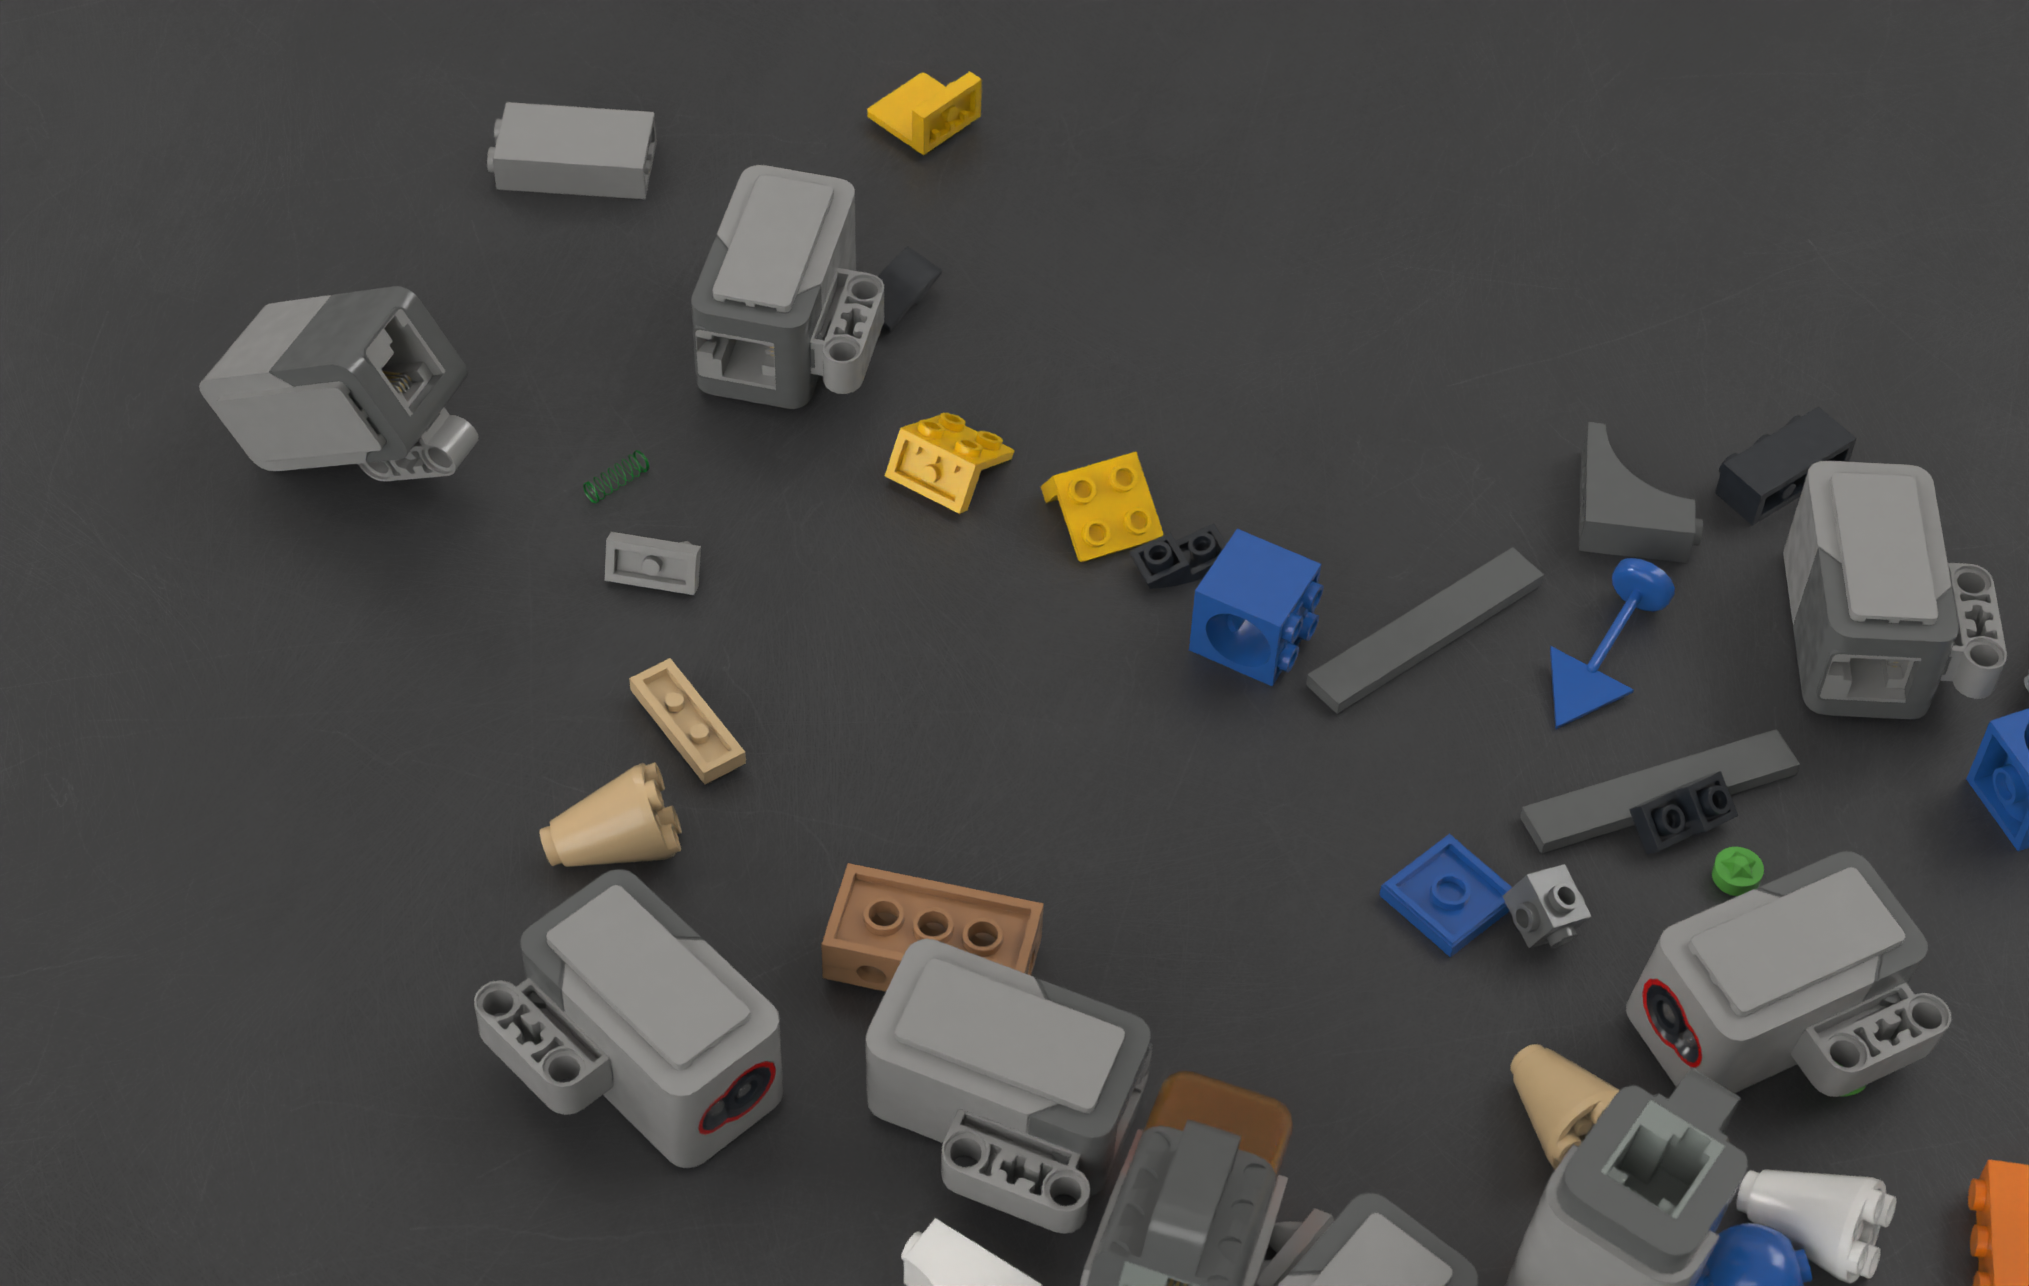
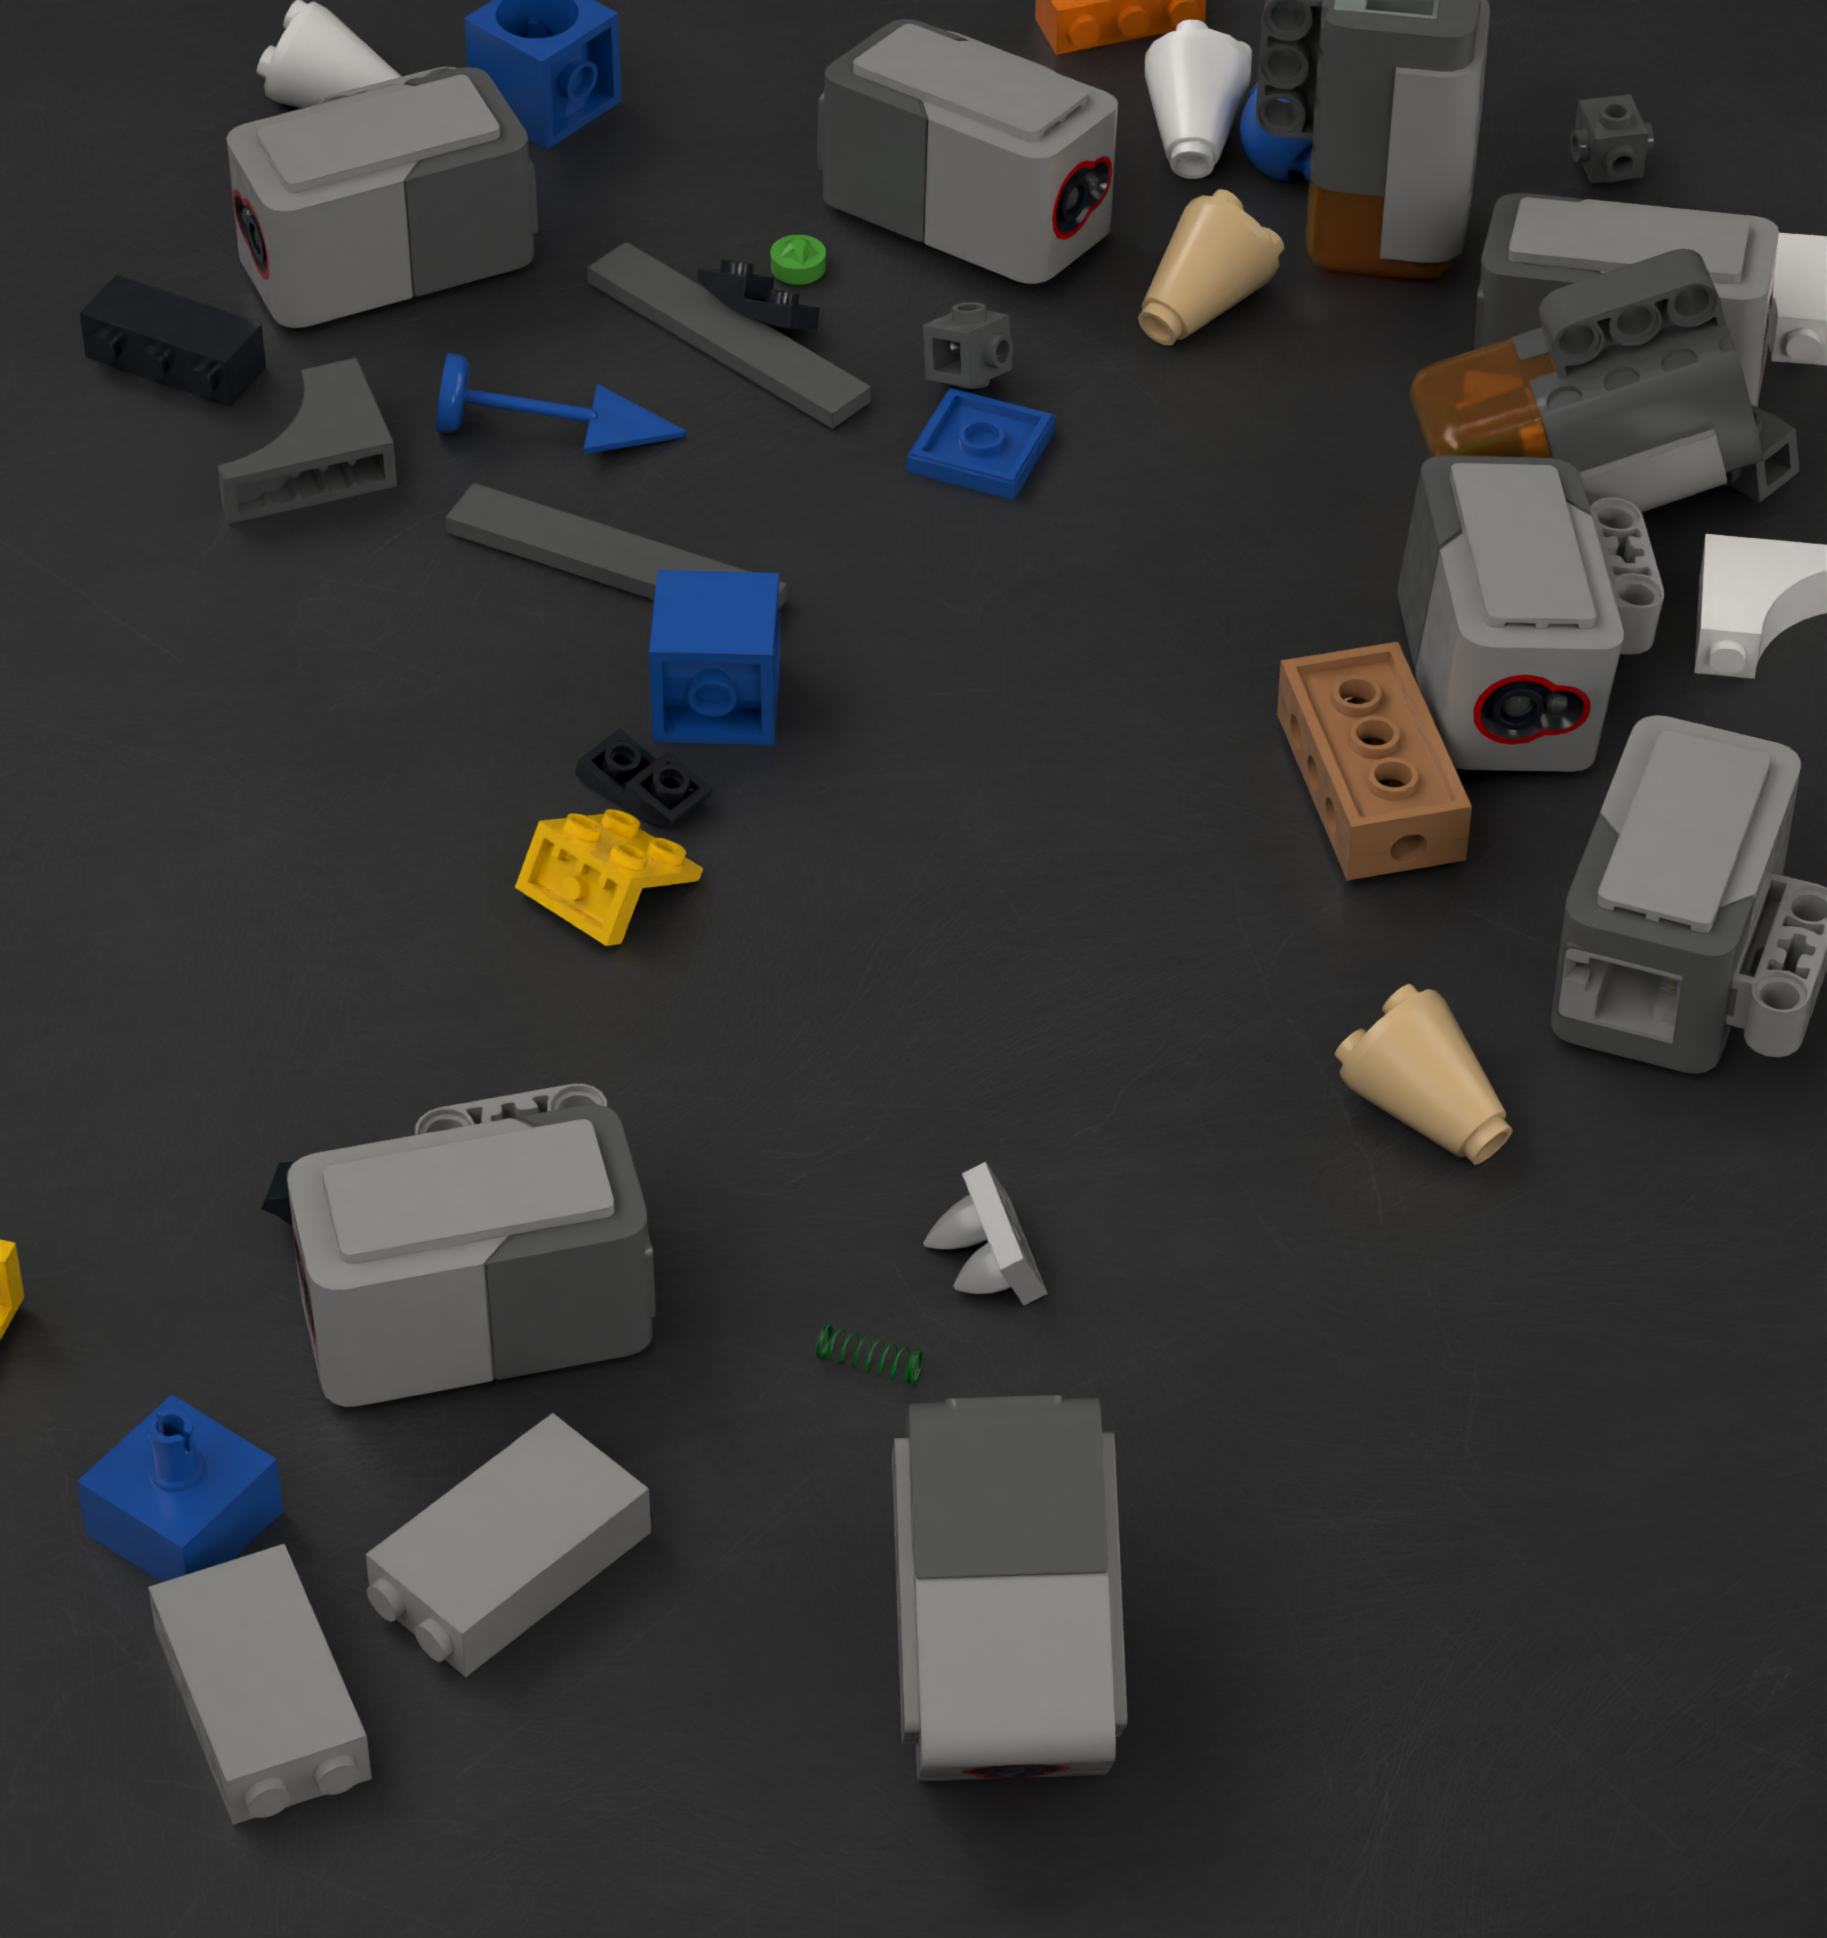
camera: 115 degrees left, 5 degrees down
(591, 271) = (507, 1545): none -> light grey brick
(687, 721) = (1216, 1105): tan plate -> none
(713, 151) = (180, 1493): none -> blue brick
(944, 459) = (627, 1016): yellow bracket -> none

